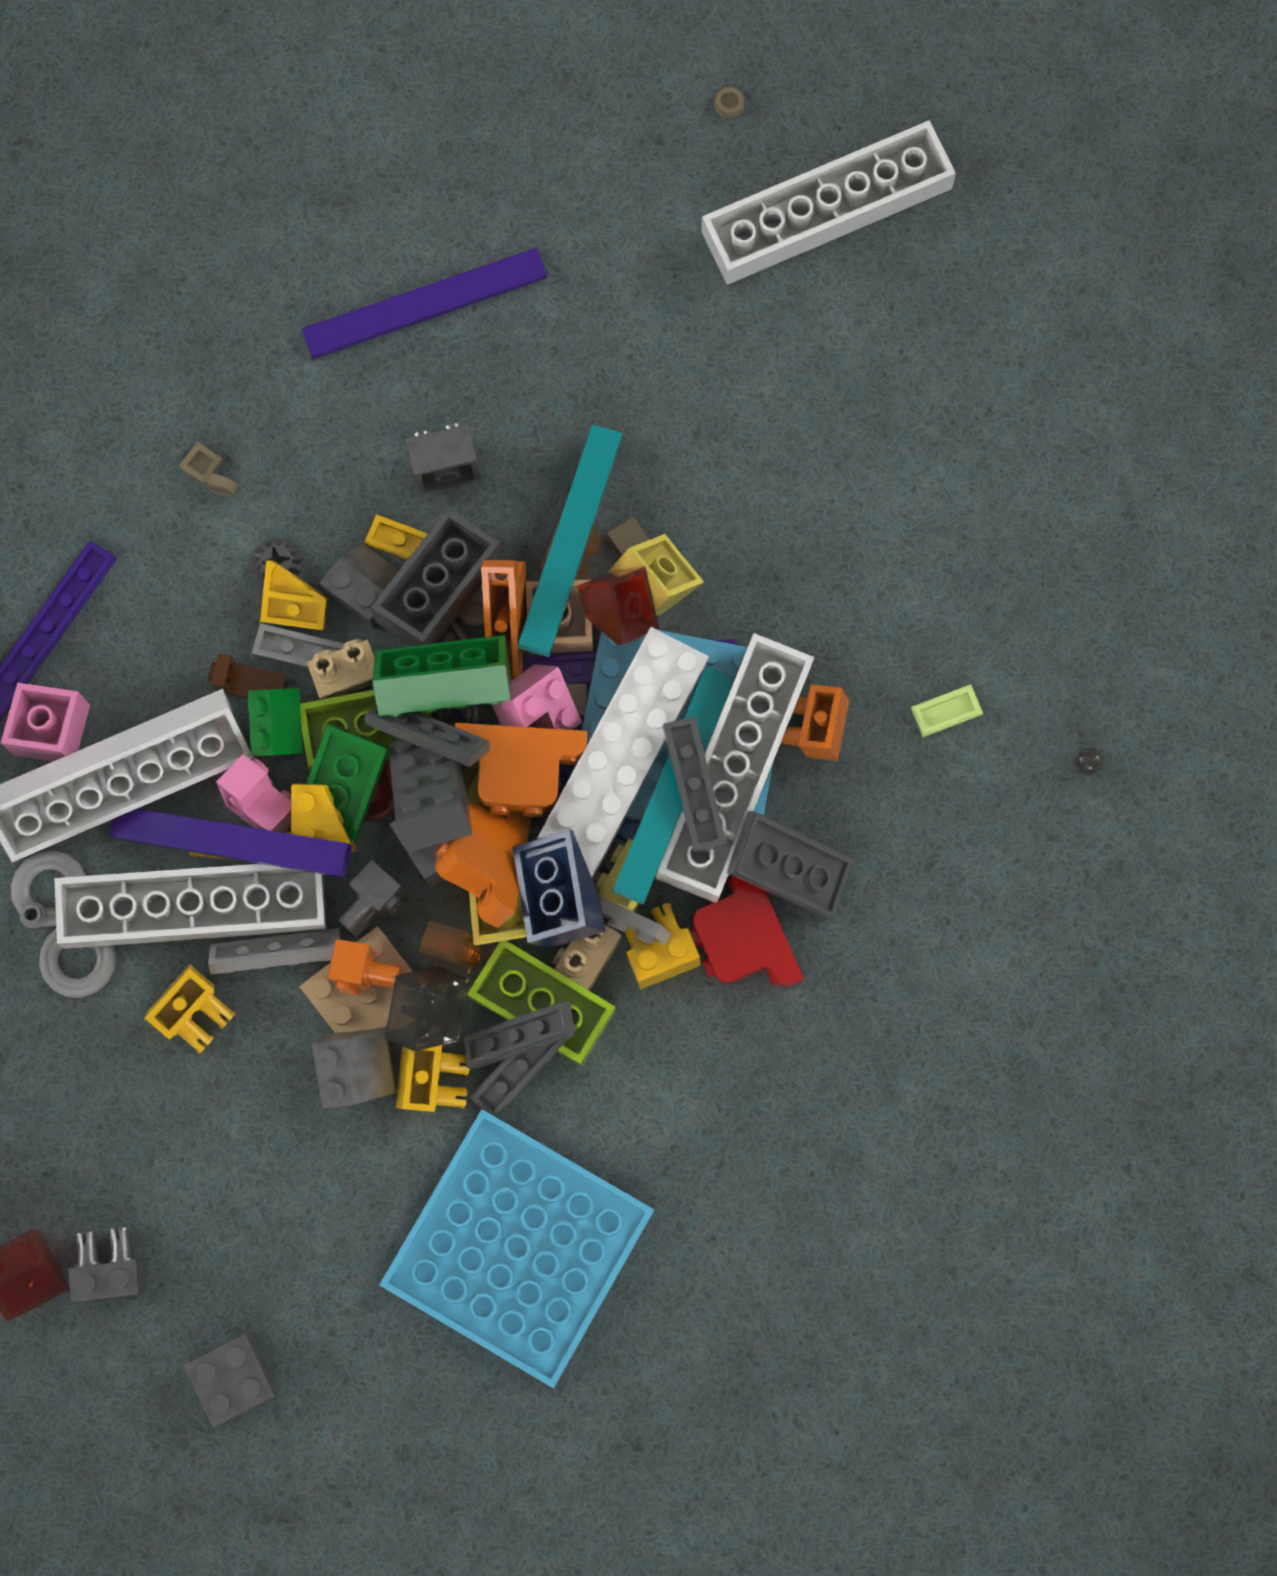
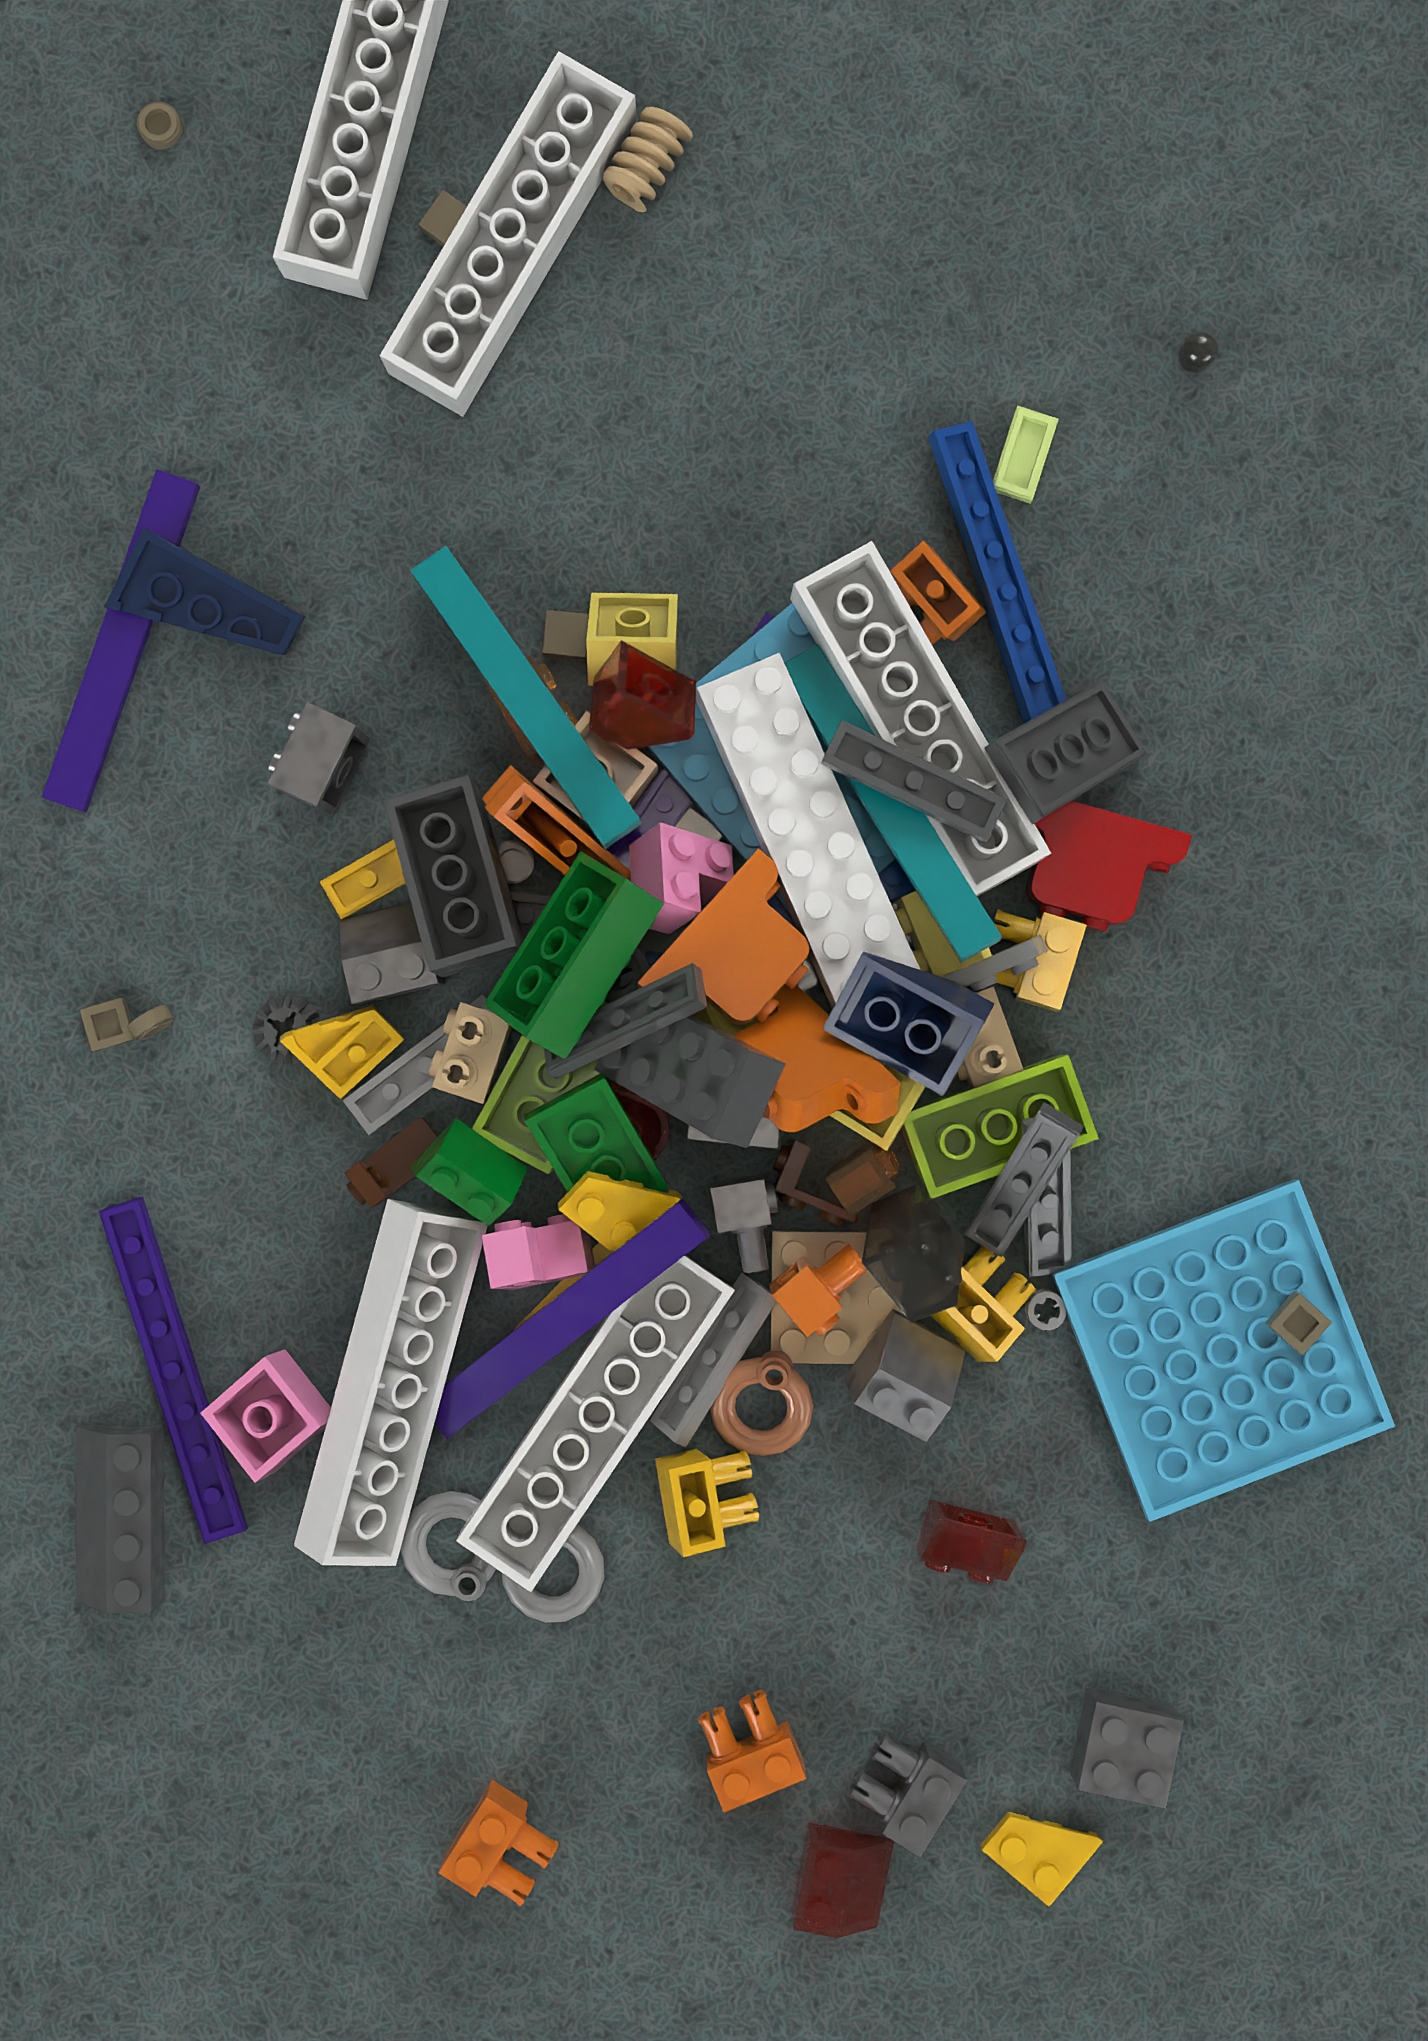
camera: 55 degrees left, 10 degrees up
(46, 1163) = (755, 1764): none -> orange brick
(127, 1384) = (1040, 1853): none -> yellow wing
(282, 1184) = (969, 1542): none -> clear red slope
(294, 1007) = (790, 1385): none -> nougat piece
(424, 904) = (790, 1165): none -> reddish brown bracket
(462, 1114) = (1051, 1322): none -> light grey bush
(481, 316) = (188, 592): none -> dark blue wing
(568, 1276) = (1298, 1322): none -> dark tan tile
(807, 294) = (442, 217): none -> dark tan tile
(825, 331) = (510, 234): none -> white brick
(867, 746) = (997, 569): none -> blue plate
(932, 369) = (643, 155): none -> tan piece

